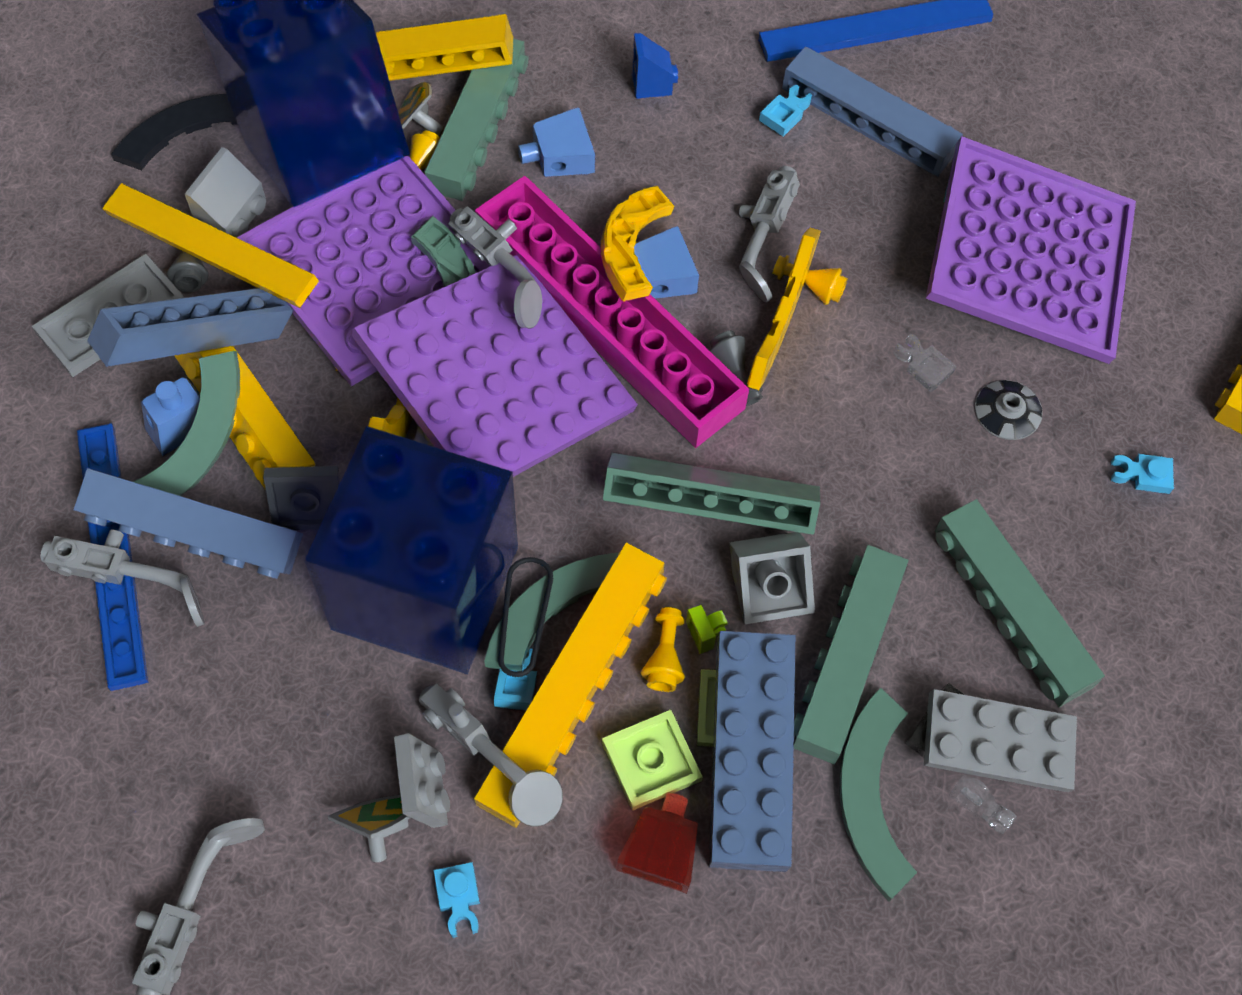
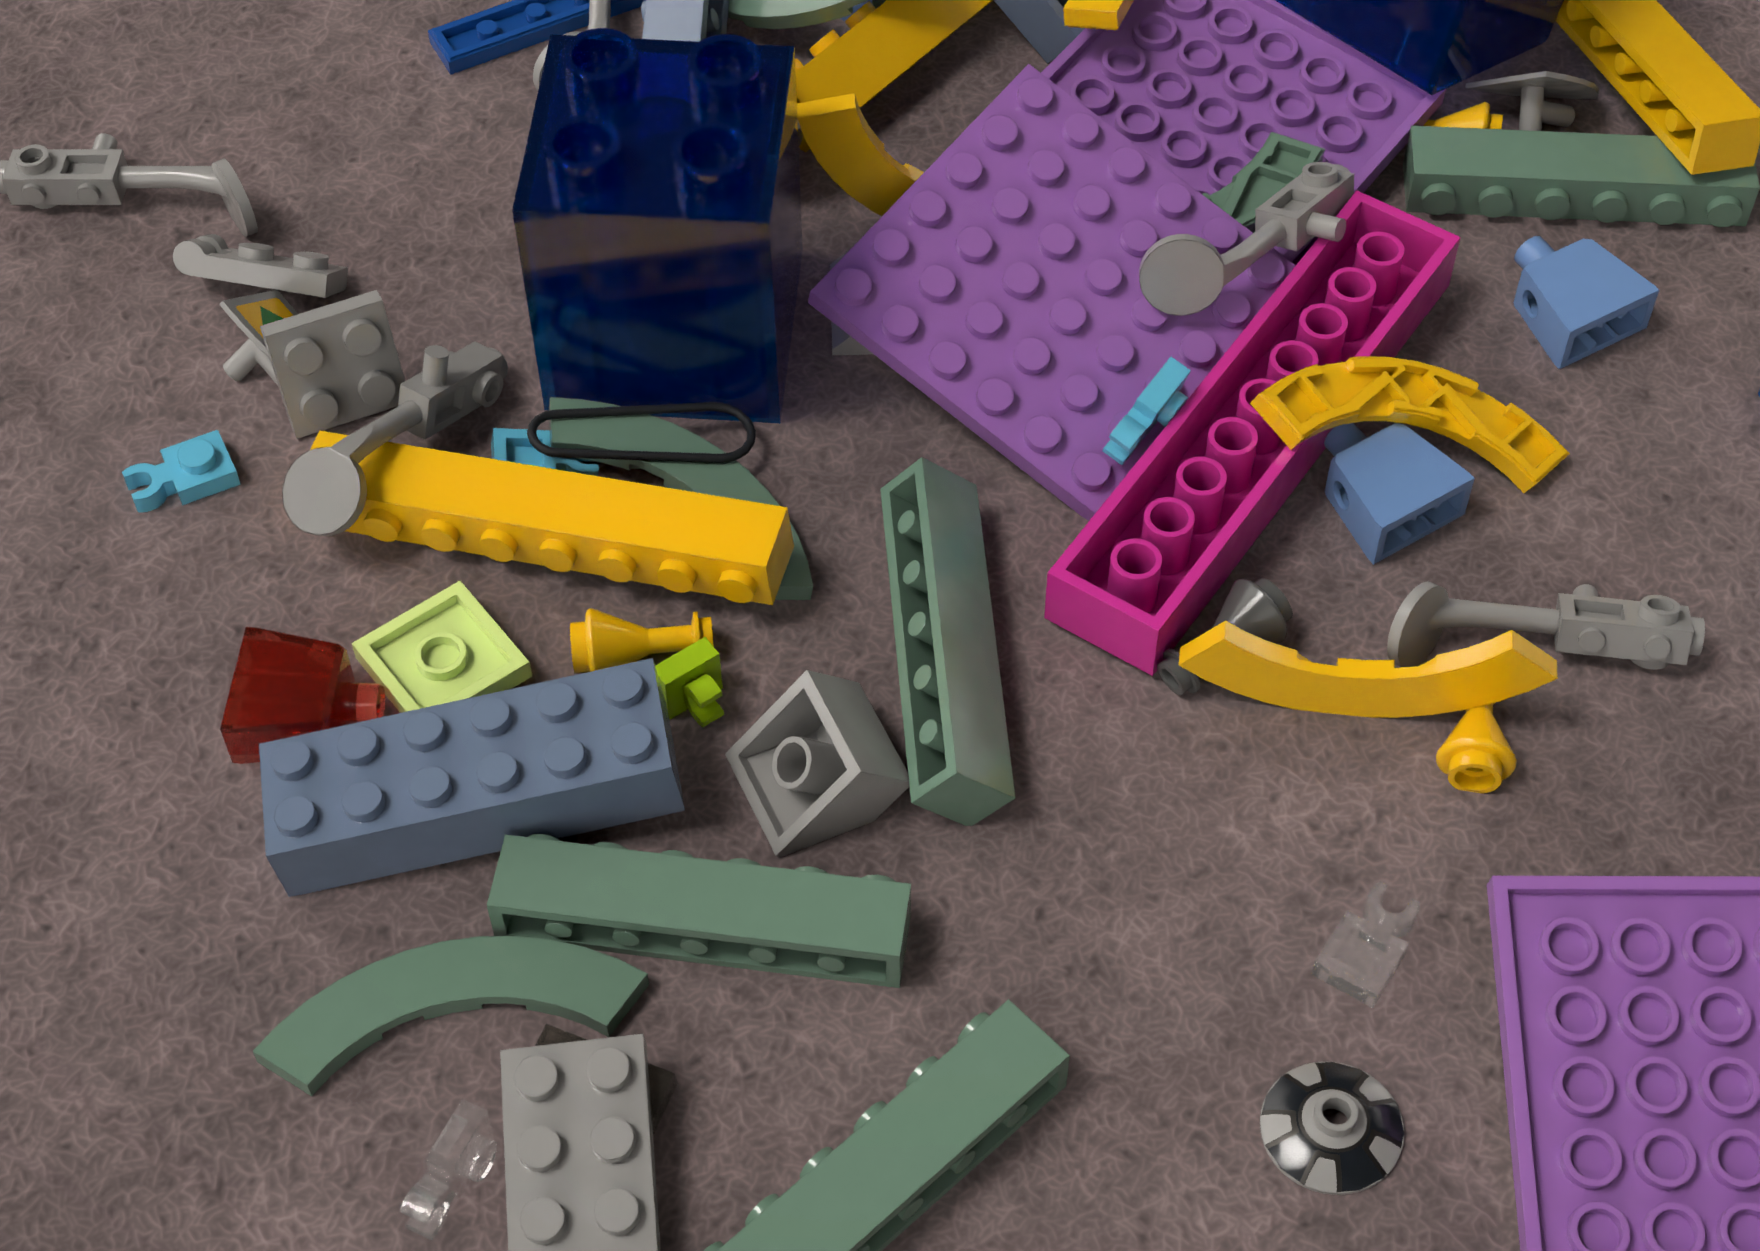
camera: 80 degrees right, 10 degrees down
(301, 826) = (259, 267): none -> light grey plate
(598, 351) = (1155, 404): none -> medium azure plate

